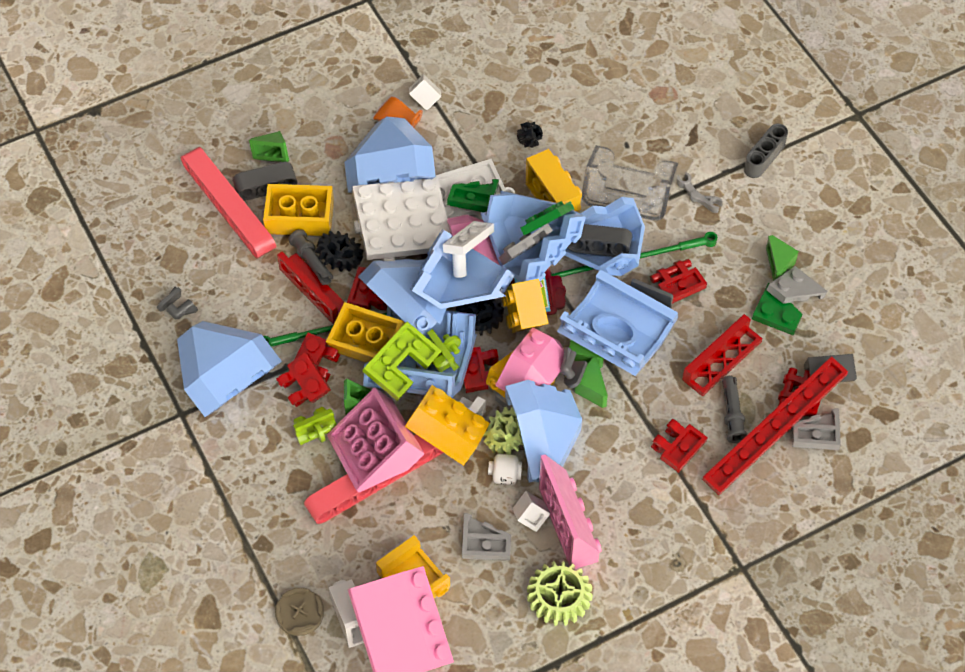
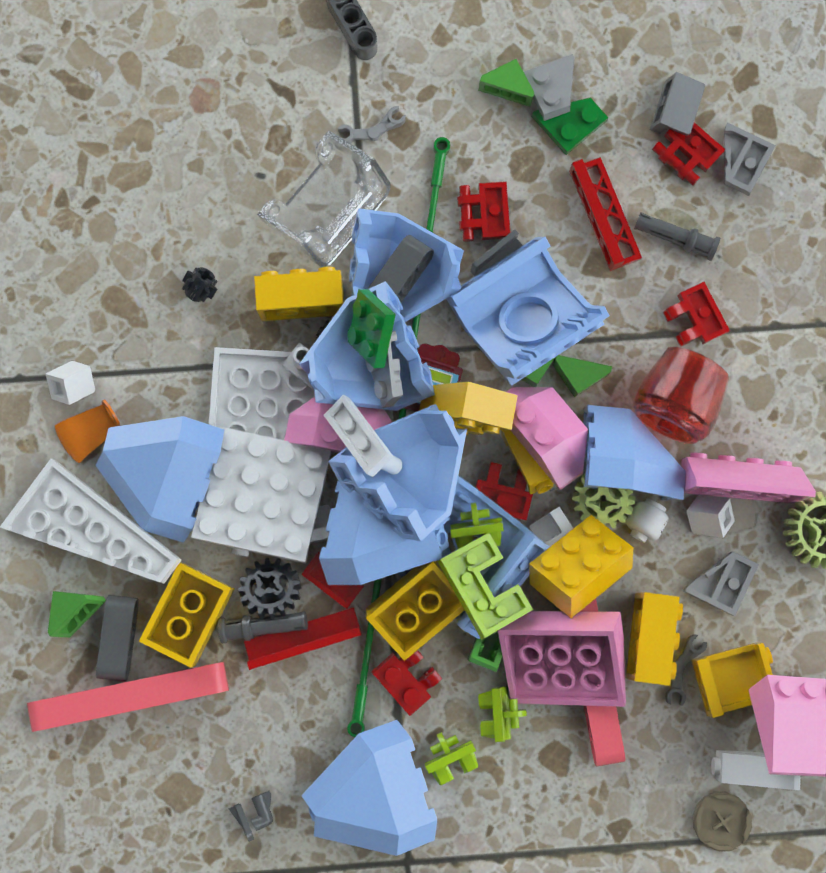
camera: 70 degrees left, 25 degrees up
(271, 403) = (462, 753): none -> lime hips
(309, 379) = (436, 697): red plate -> none
(333, 131) = (79, 520): none -> white wing
(404, 535) = (687, 654): none -> dark grey piece
(417, 498) = (653, 638): none -> yellow brick
(472, 195) = (267, 393): green wing -> none
(572, 369) = (570, 390): dark grey piece -> none
(609, 445) = (681, 395): none -> clear red piece
(775, 426) = (725, 200): red plate -> none

